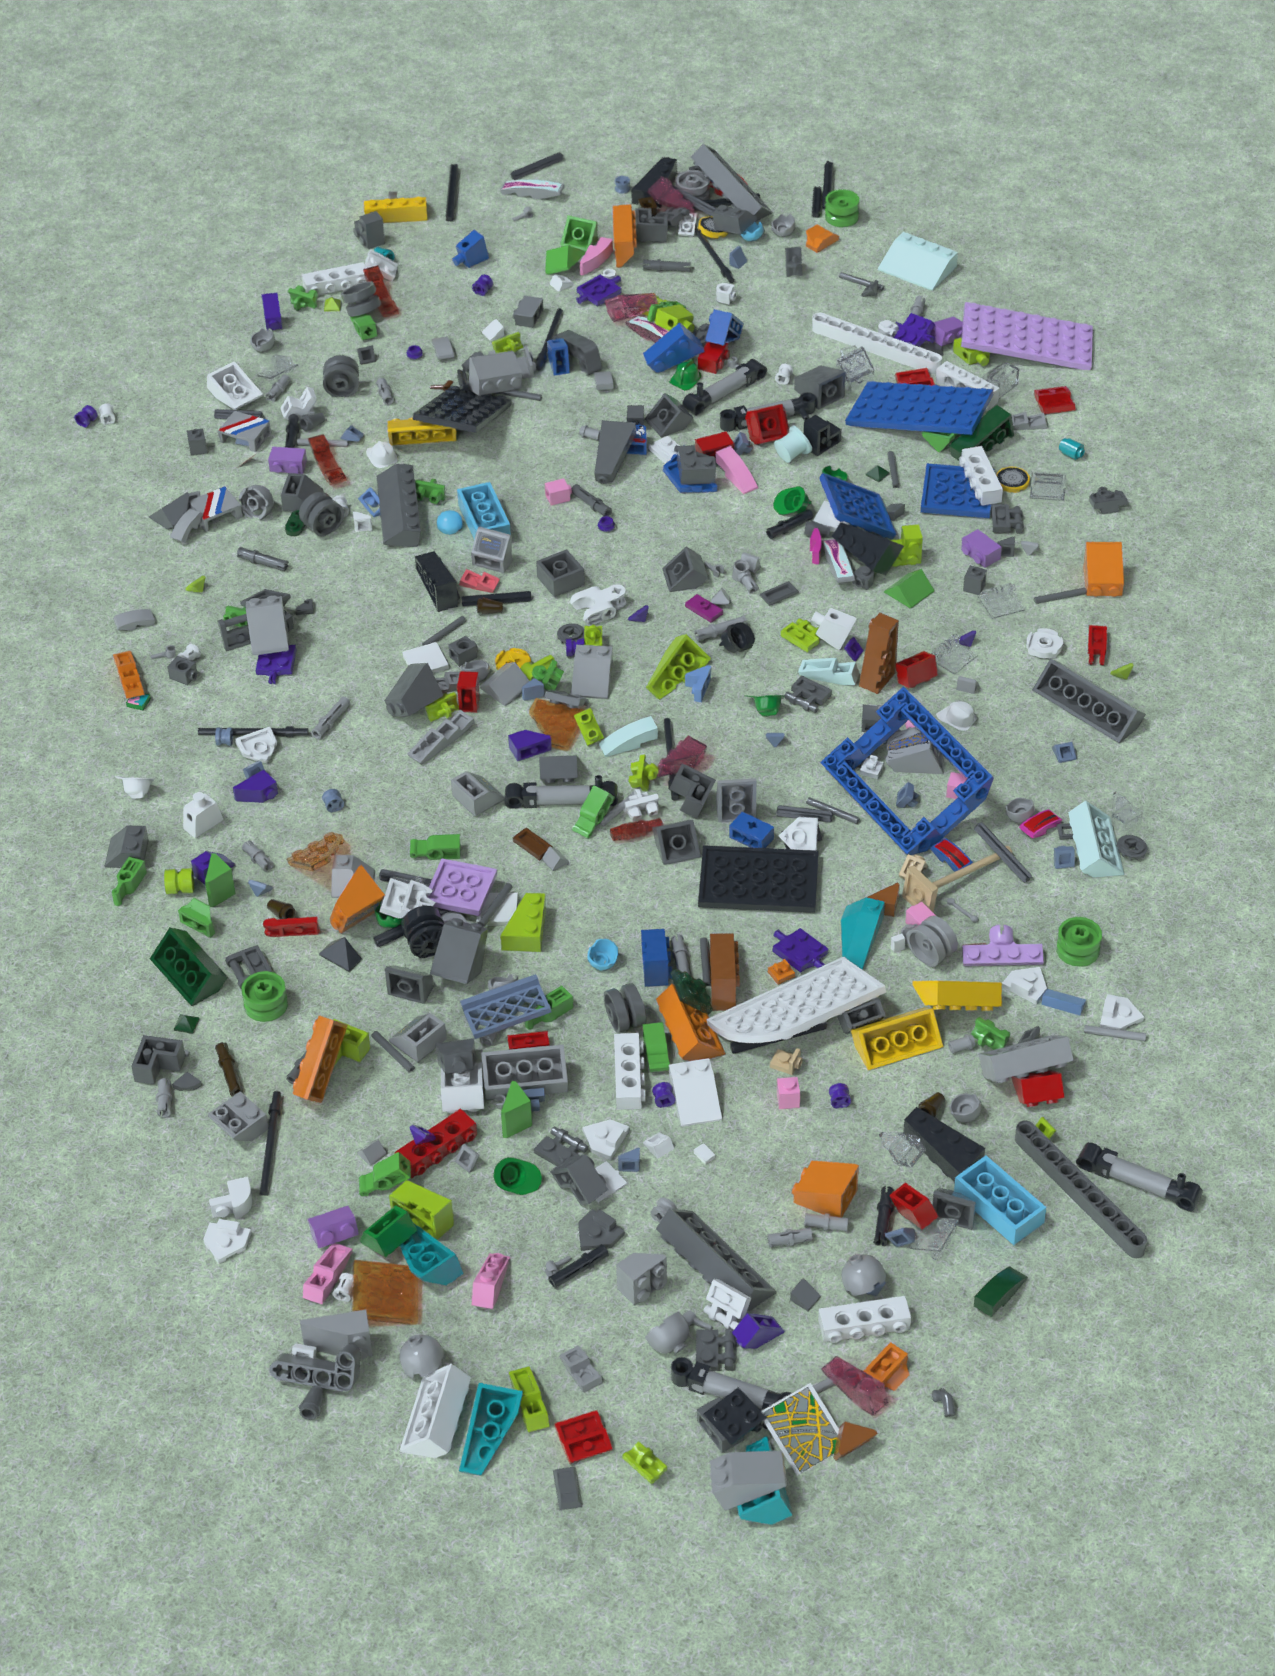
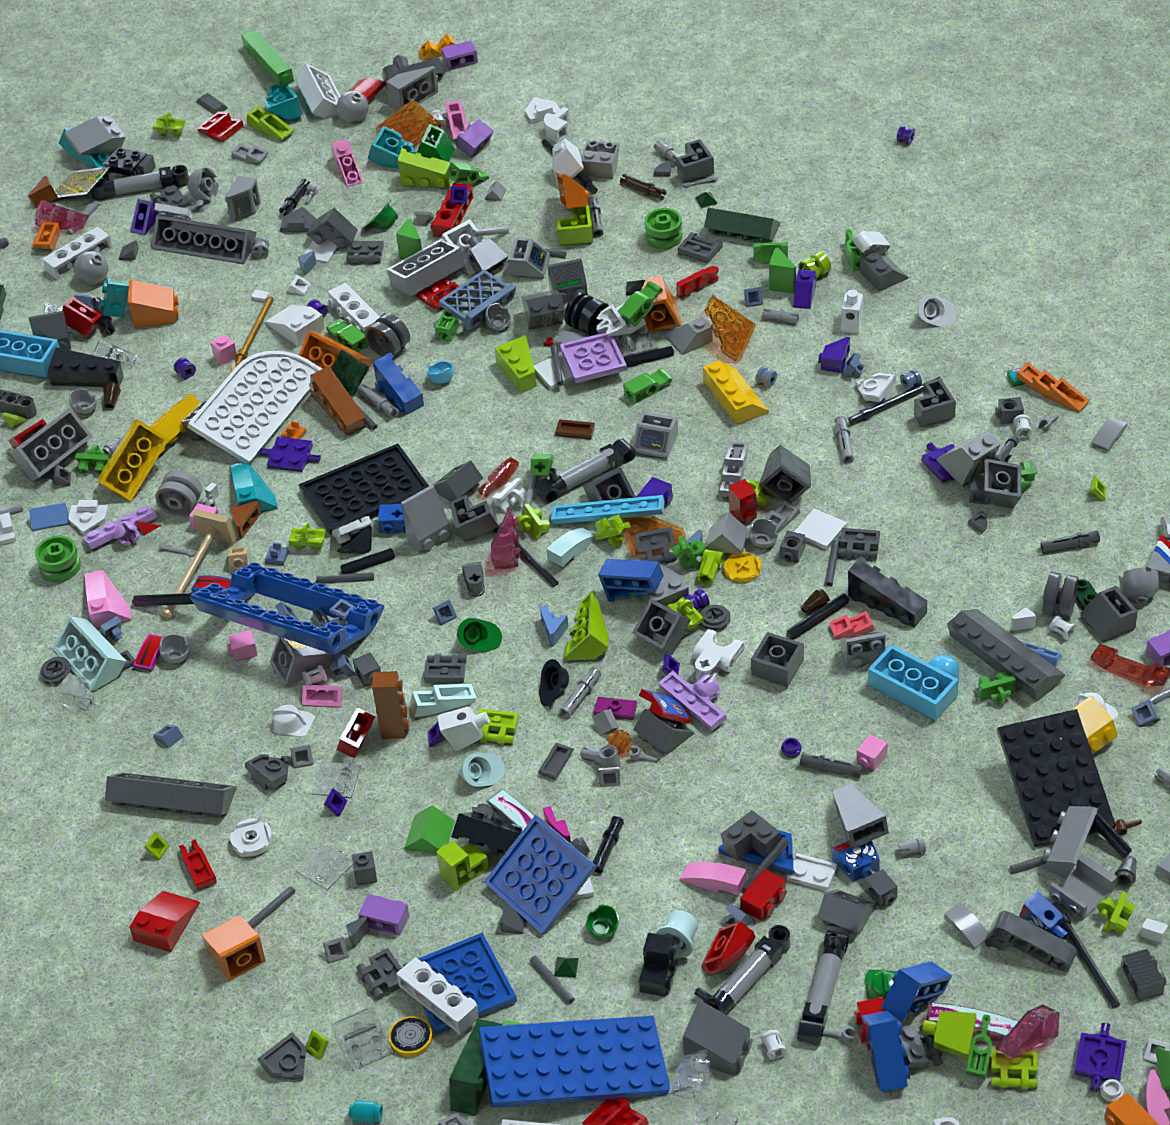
camera: 150 degrees right, 0 degrees up
(117, 854) = (870, 242): none -> white beam
(233, 697) = (935, 404): none -> dark grey brick
(238, 1375) = (459, 55): none -> medium lavender brick
(254, 1412) = (431, 50): none -> light orange slope
(279, 1126) = (566, 159): none -> white slope
(281, 909) = (719, 289): dark brown cone -> none
(372, 801) = (733, 392): none -> yellow slope
(385, 878) = (640, 303): none -> bright green piece
(385, 1389) = (368, 87): none -> slope
(407, 634) = (859, 538): none -> dark grey plate
(427, 1083) = (490, 231): none -> light grey bar
(455, 1507) = (267, 58): none -> bright green brick
(554, 859) = (544, 427): light grey slope -> none
(577, 743) = (606, 509): none -> medium azure plate
(605, 1137) = (339, 272): white plate -> none
(616, 664) = (629, 577): none -> blue wedge
(623, 628) = (661, 626): none -> dark grey brick
(642, 581) = (695, 697): none -> lavender plate
(672, 578) = (665, 706): none -> slope
(724, 577) = (621, 740): none -> clear orange gear
(728, 750) = (474, 578): none -> dark grey piece
(770, 1087) = (243, 352): none -> pearl gold bar
(789, 1237) = (162, 273): light grey pin -> none
(791, 501) = (619, 868): green piece -> none
(842, 849) = (307, 537): none -> lime hips
(847, 606) = (484, 766): none -> light aqua piece
(860, 761) = (341, 609): none -> sand blue slope
(867, 1195) = (114, 298): none -> teal bracket
(877, 858) = (276, 554): none -> sand blue tile
(881, 766) = (320, 617): none -> black axle
(999, 682) = (268, 770): none -> dark grey plate
(1054, 890) = (104, 599): none -> bright pink wedge
(1078, 499) = (316, 1044): none -> lime slope
(1144, 616) = (163, 920): none -> red slope

